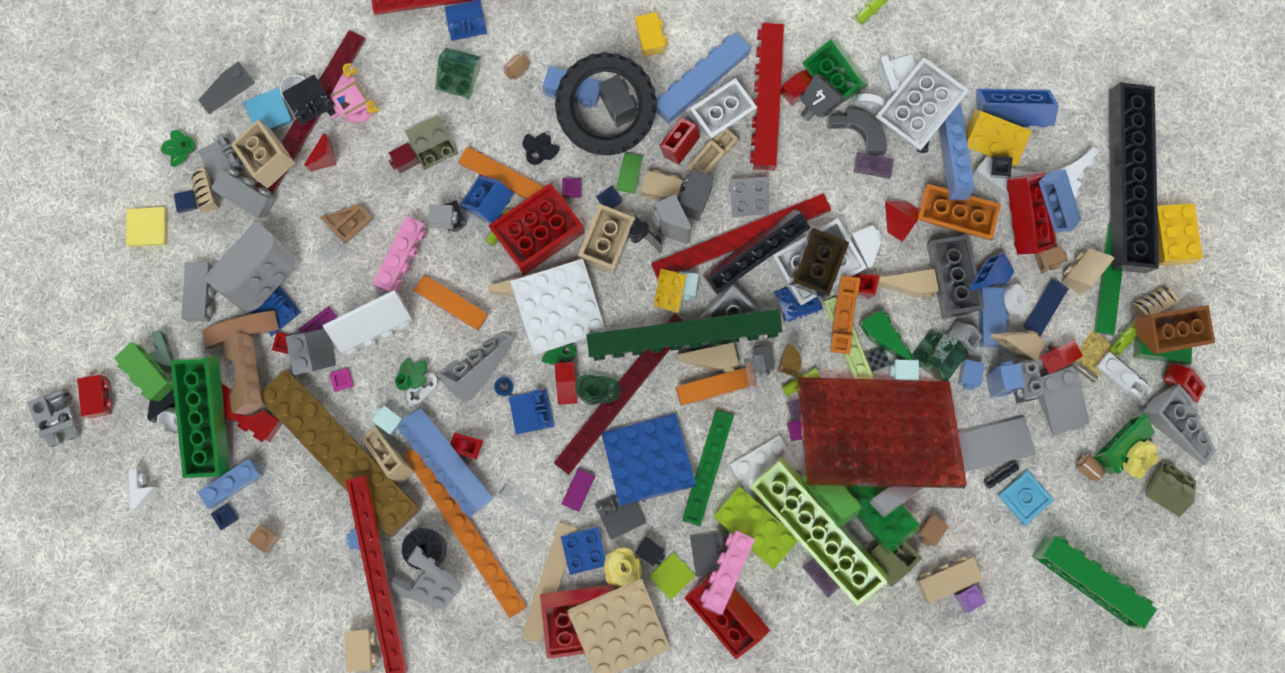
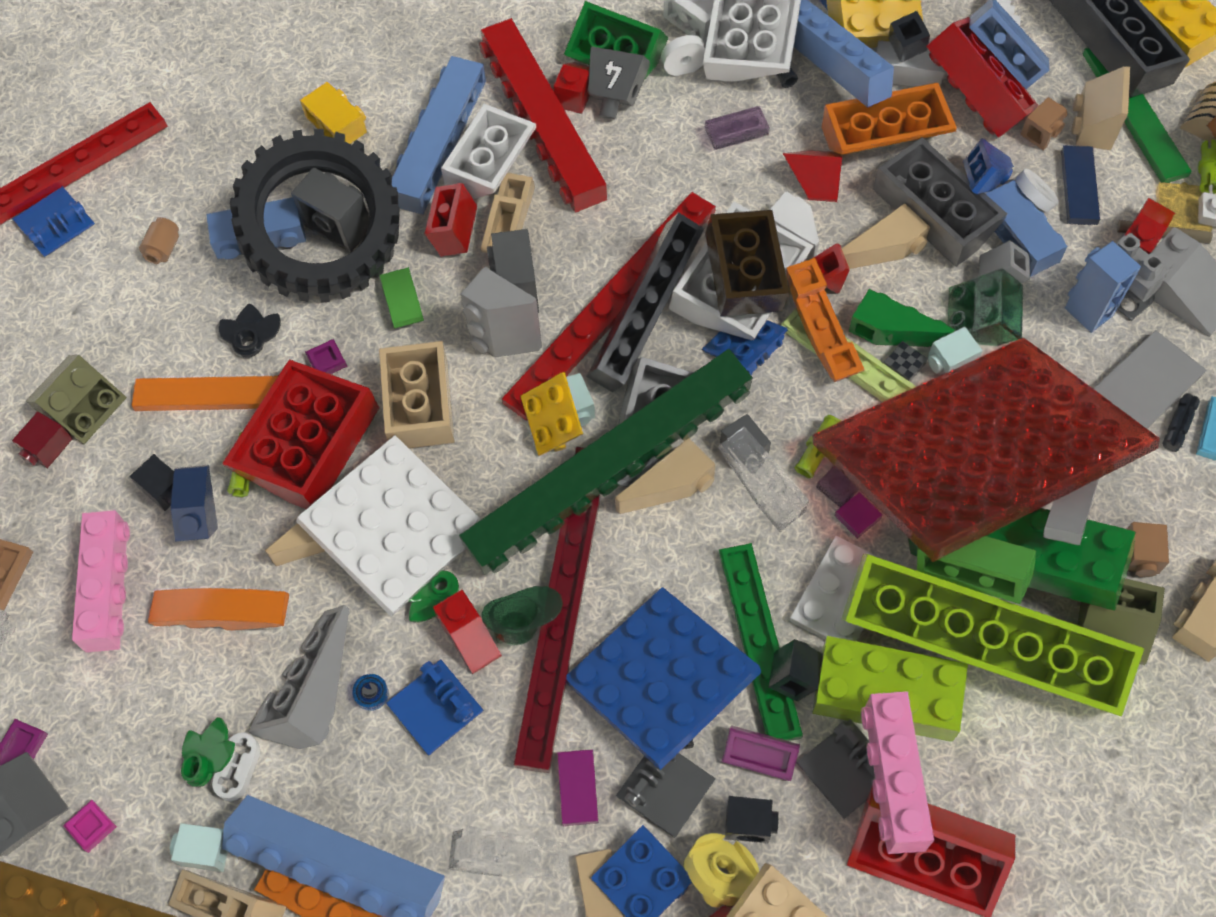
camera: 25 degrees left, 15 degrees down
(369, 323) = (91, 702): white slope -> none
(442, 216) = (140, 481): light grey brick -> none
(457, 72) = (72, 290): clear green slope -> none
(463, 240) = (193, 504): none -> dark blue slope
(466, 445) = (356, 814): red slope -> none
(486, 199) = (203, 431): blue slope -> none
(609, 198) = (386, 339): dark blue tile -> none
(640, 230) = (469, 356): black hinge -> none
(659, 186) = (445, 291): tan brick -> none
(672, 576) = (806, 841): lime piece -> none
(674, 523) = (761, 753): none -> magenta tile
(712, 387) = (695, 518): orange slope -> none
(715, 493) = (796, 670): none -> black brick
(749, 196) = (591, 244): light grey hinge -> none
(790, 361) = (787, 420): pearl gold brick -> none
(820, 577) = (1034, 706): clear purple plate -> none
(865, 125) = (692, 86): dark grey arch -> none
(971, 374) = (1046, 312): medium blue brick -> none
(1022, 344) = (1082, 233): tan slope -> none

